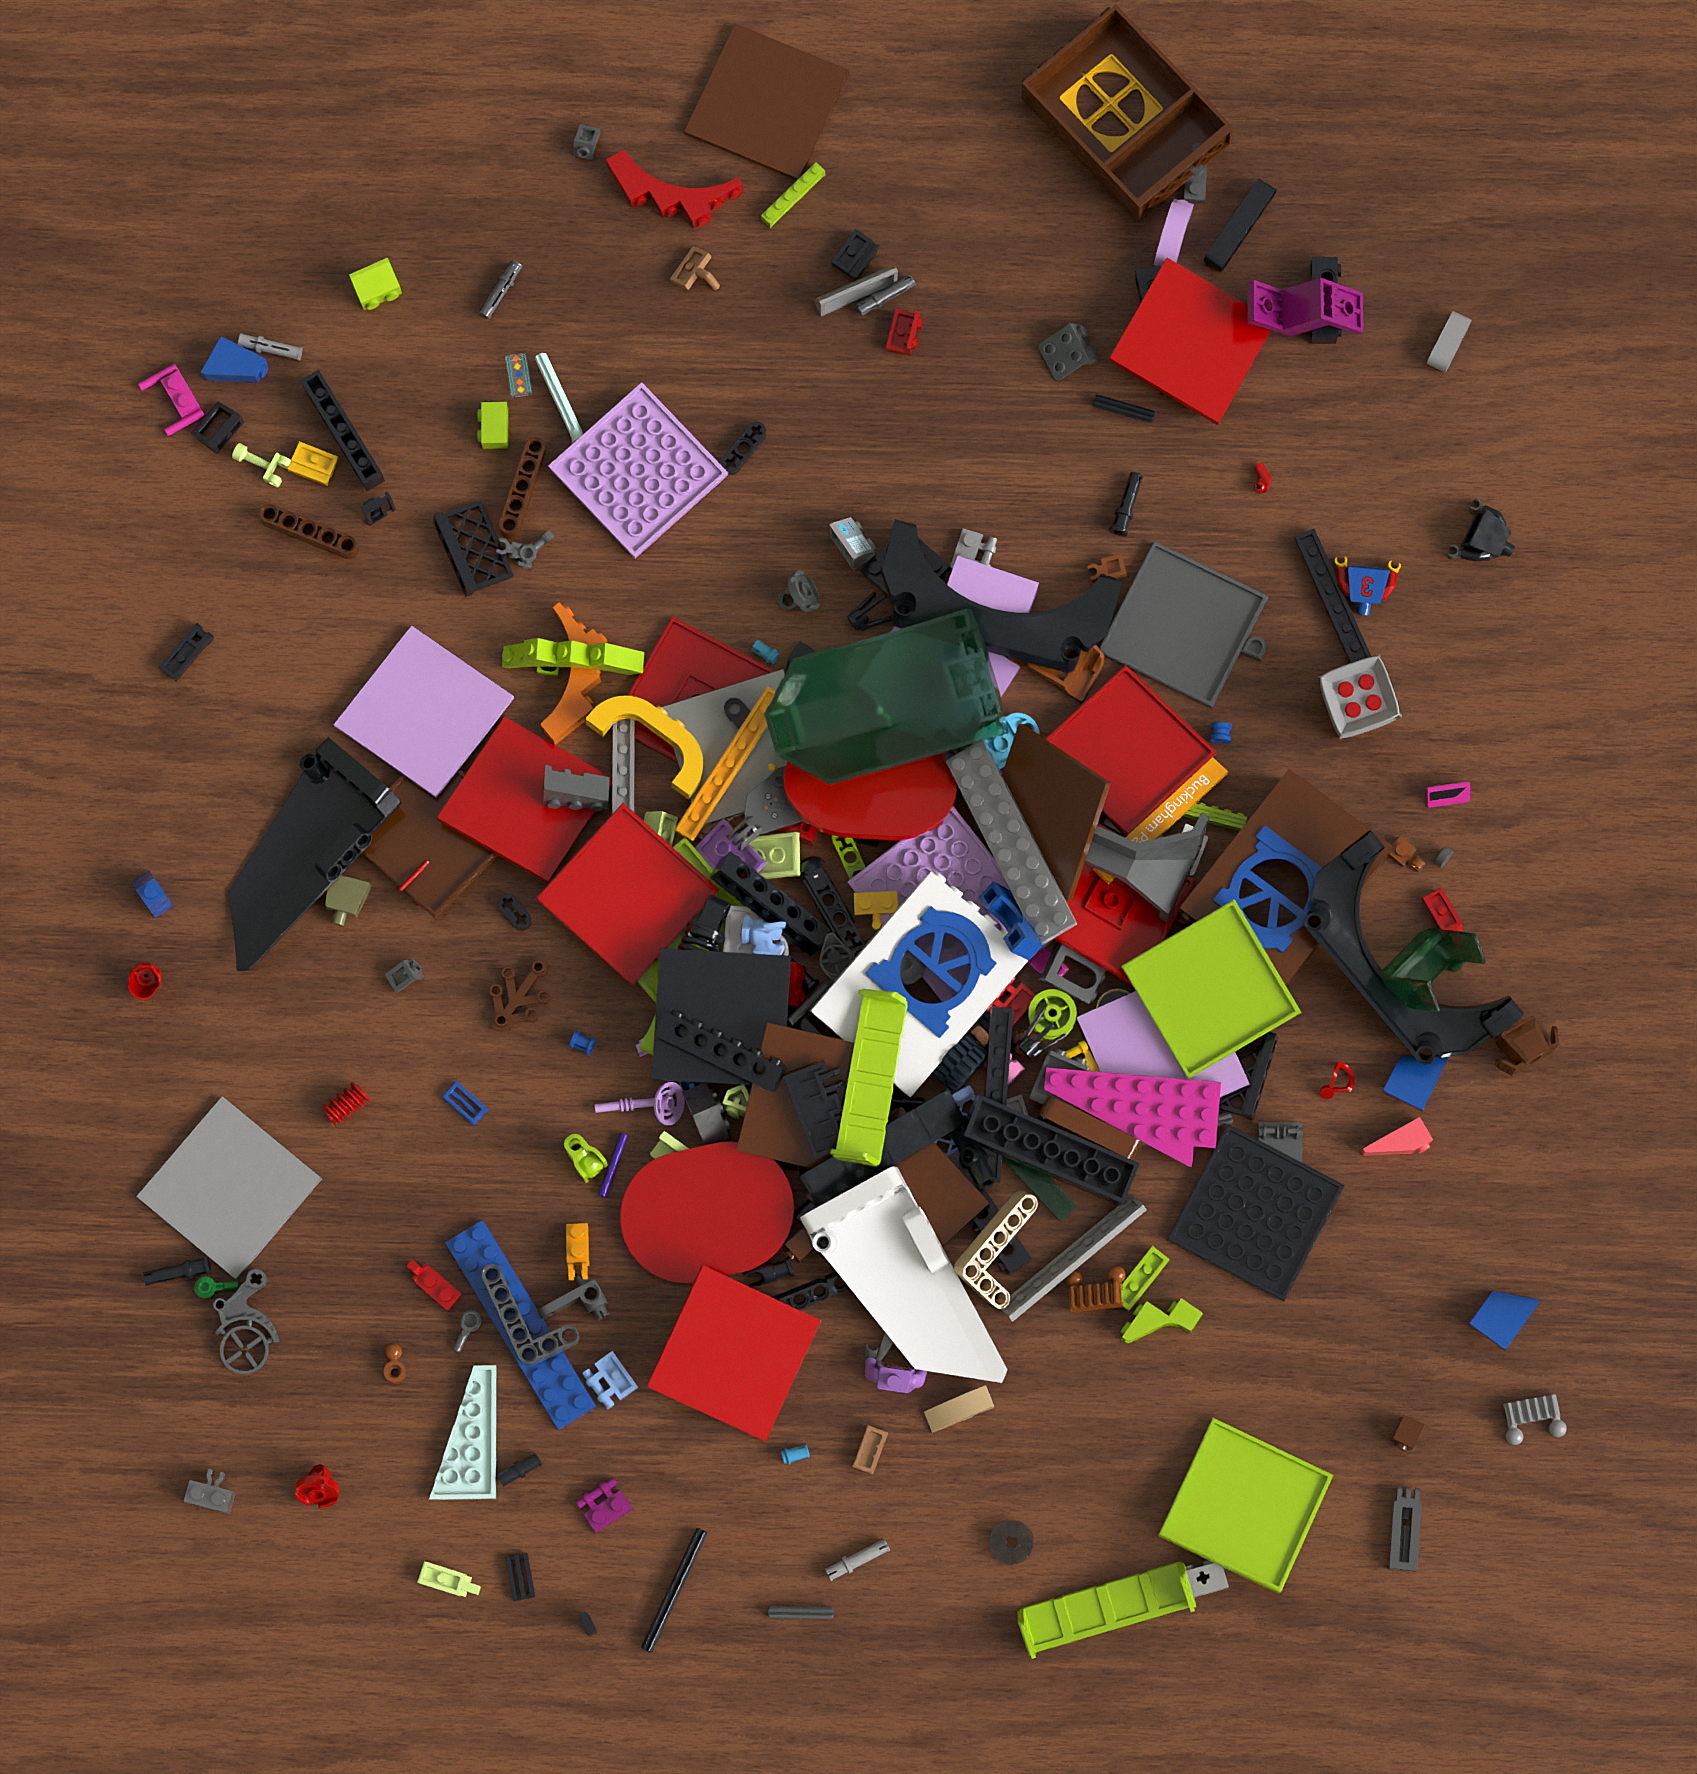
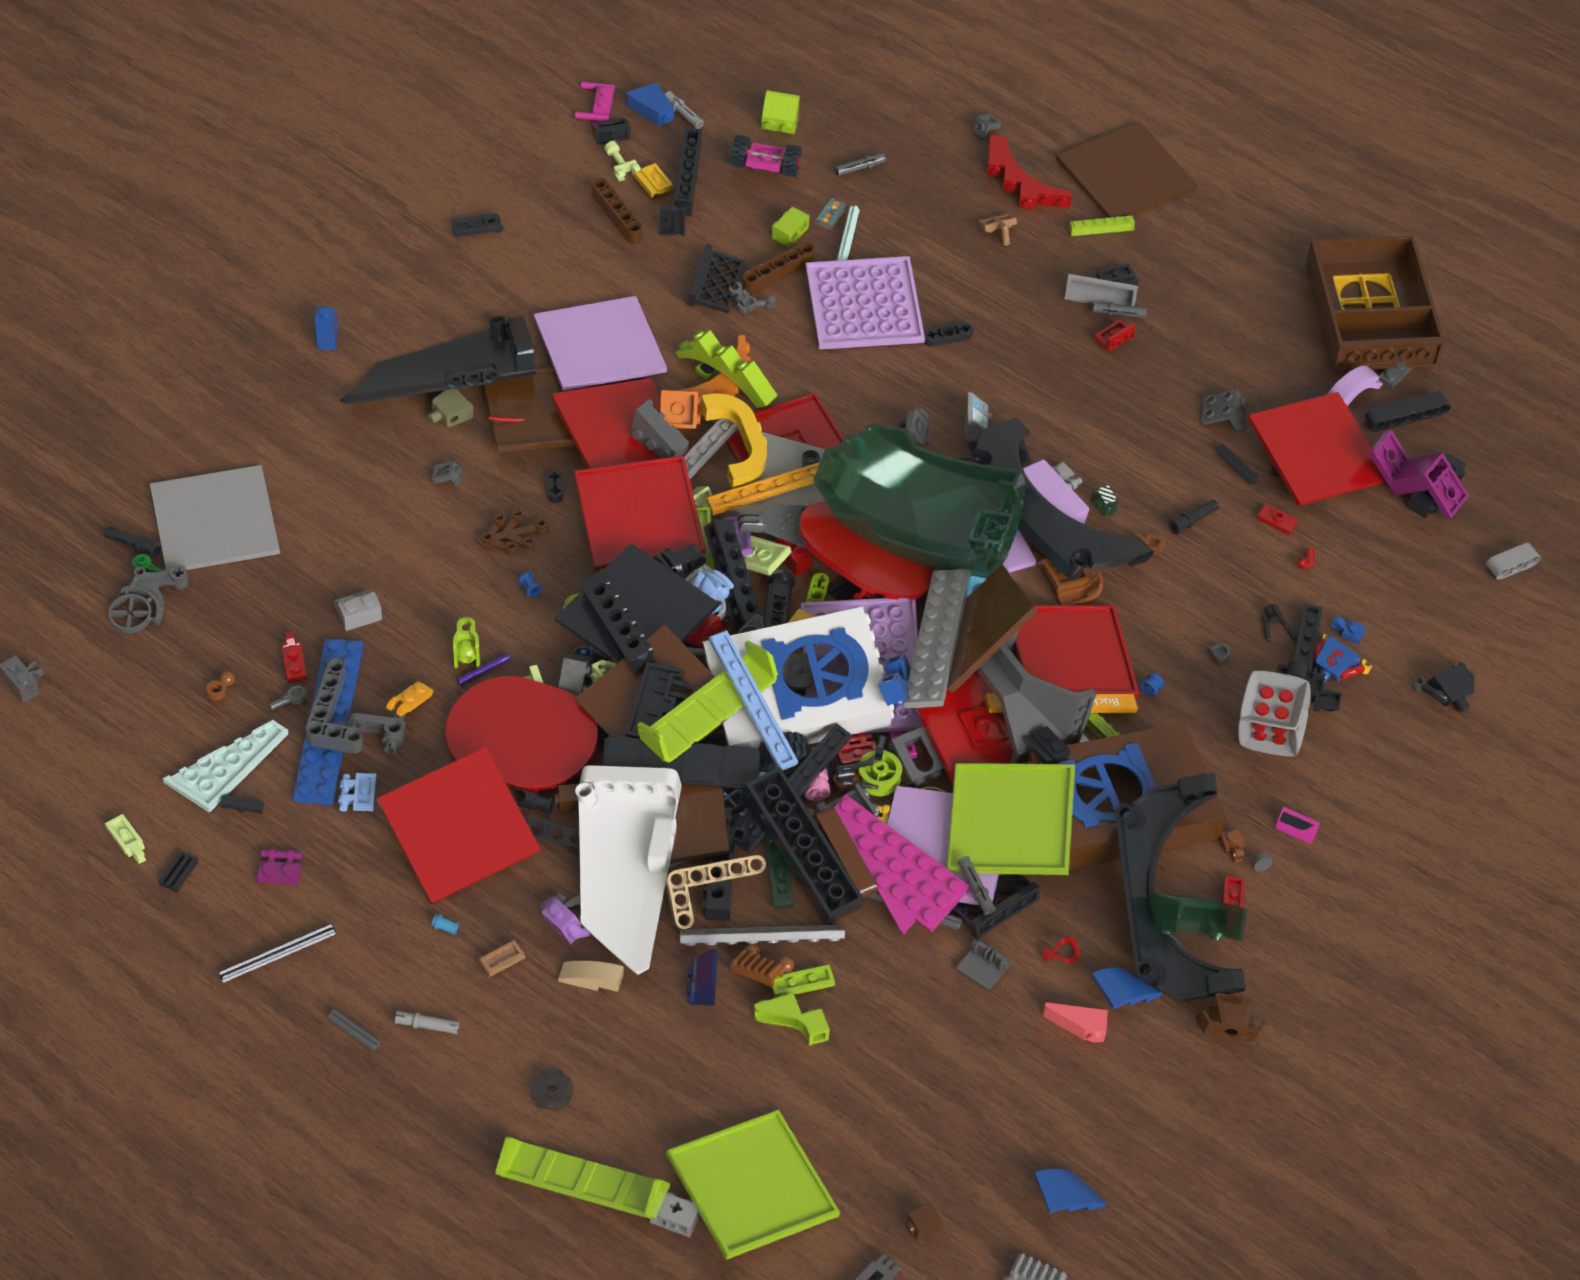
camera: 30 degrees right, 25 degrees down
(143, 986) = (273, 367): red helmet -> none
(317, 1488) = (93, 719): red tile -> none
(345, 1103) = (336, 517): red piece -> none
(404, 353) = (765, 156): none -> plate
(446, 1187) = (358, 609): none -> light grey slope
(478, 1115) = (419, 582): blue tile -> none
(570, 742) = (680, 408): none -> orange plate
(588, 1623) = (196, 930): black tile -> none
(659, 1102) = (544, 650): lavender dish -> none
(905, 1044) = (753, 700): none -> light blue tile
(1030, 979) = (880, 748): none -> black piece
(1035, 548) = (1104, 500): none -> clear green brick
(1058, 1342) = (703, 978): none -> clear blue slope
(1183, 624) = (1177, 609): dark grey tile -> none
(1190, 890) = (1046, 745): none -> black plate
(1204, 449) = (1277, 519): none -> red plate
(1249, 1091) = (980, 892): none -> dark grey pin
(1255, 1212) = (927, 997): black tile -> none
(1275, 568) = (1273, 614): none -> black plant
(1355, 534) = (1350, 631): none -> blue plate
(1360, 638) = (1322, 698): none -> black plate

